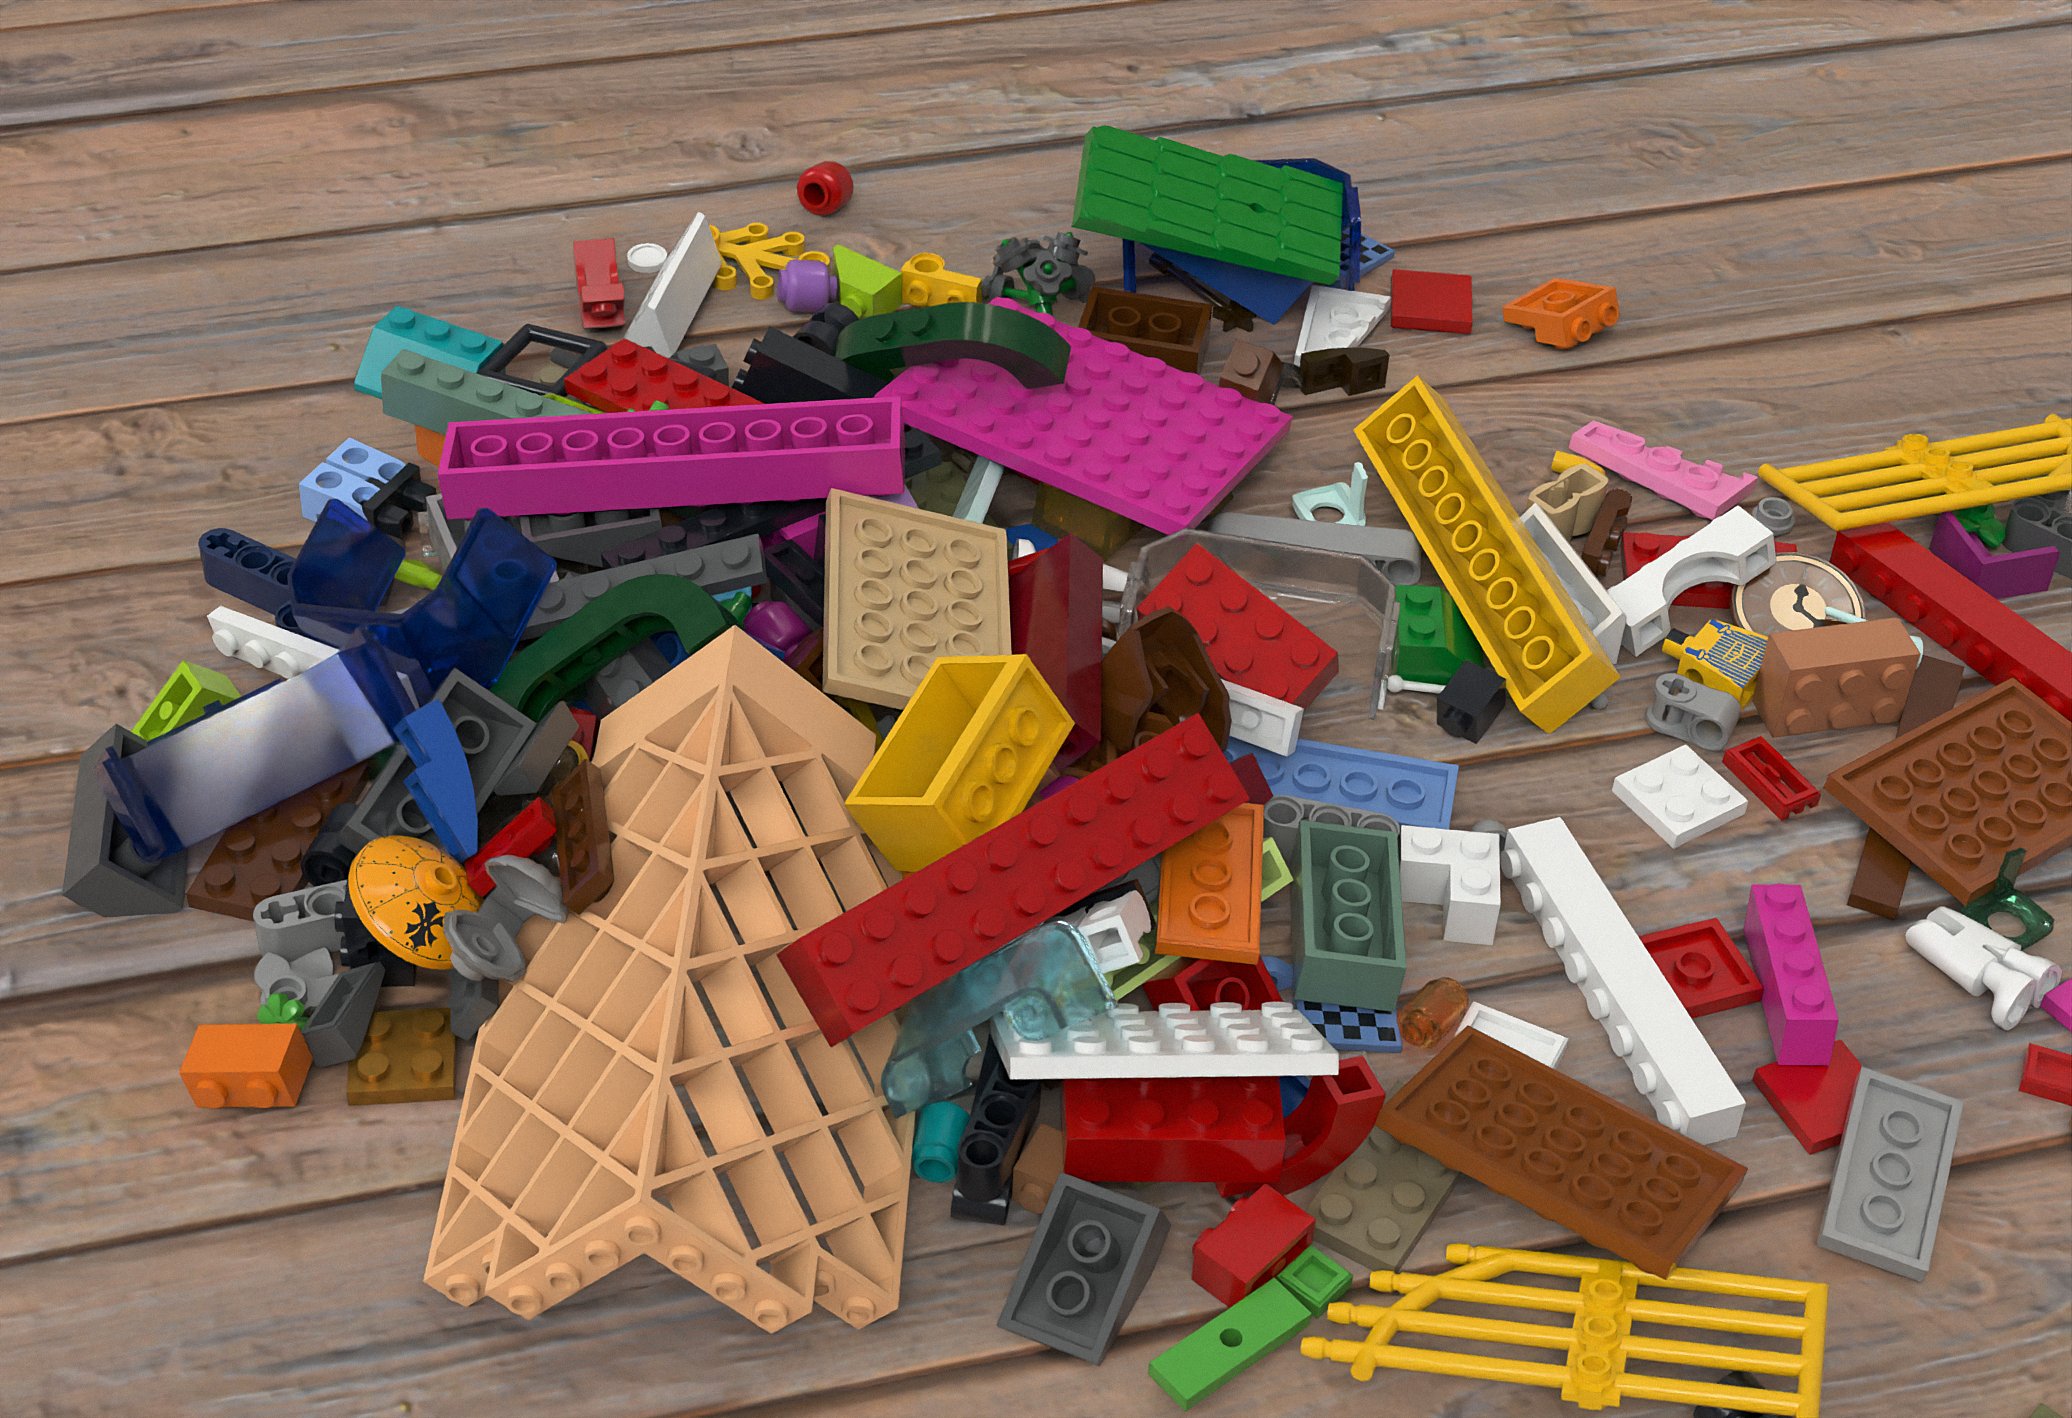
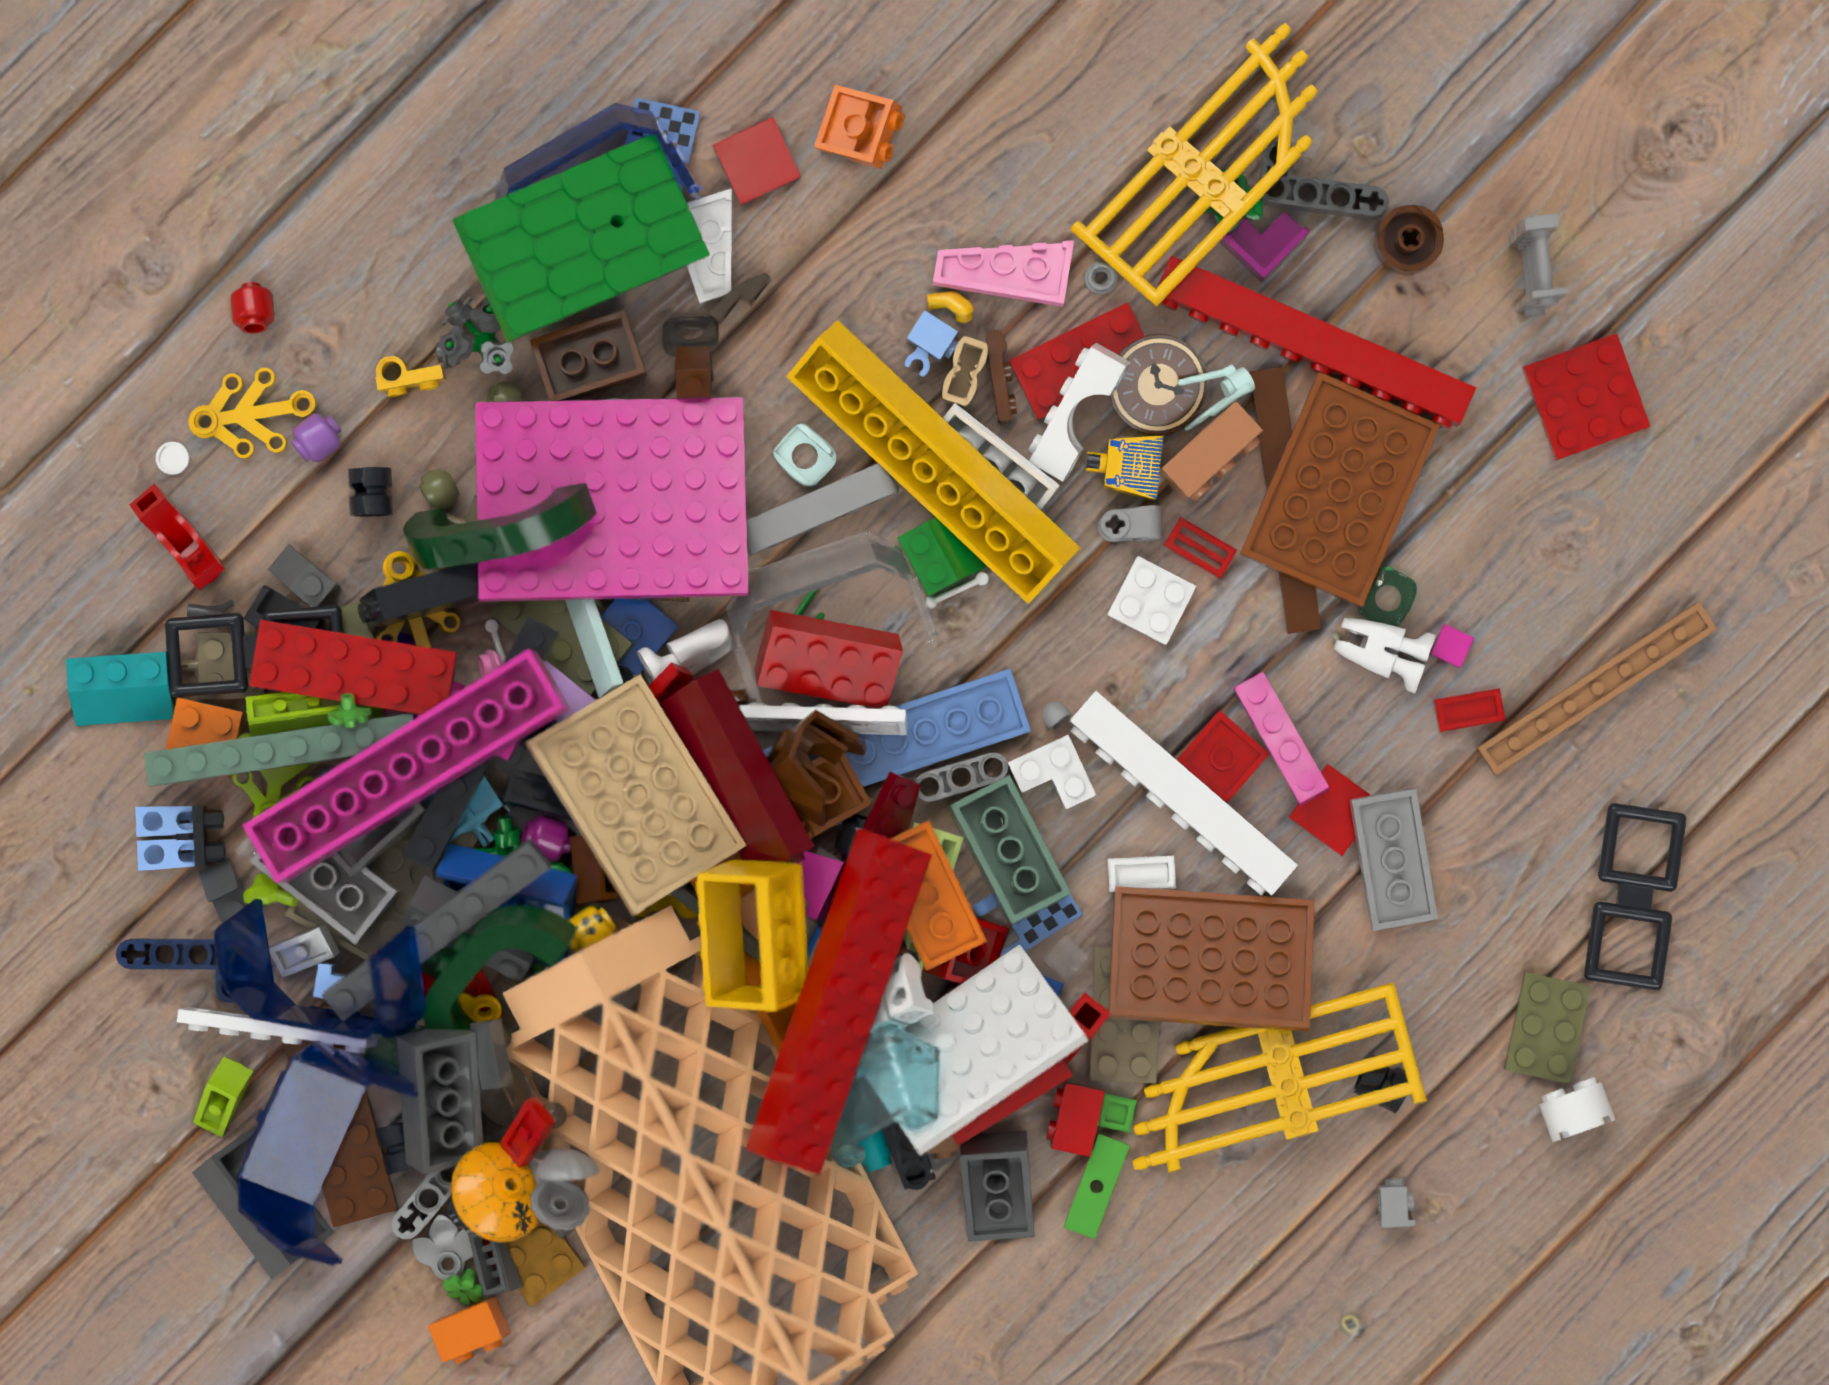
camera: 30 degrees left, 45 degrees up
(442, 778) = (456, 1117): blue slope -> none
(582, 838) = (571, 1113): reddish brown plate -> none
(677, 290) = (231, 511): white slope -> none
(865, 284) = (354, 411): lime slope -> none
(1432, 1012) = (1090, 886): clear orange brick -> none
(1471, 702) = (990, 606): black brick -> none
(1531, 469) = (931, 338): none -> light blue brick

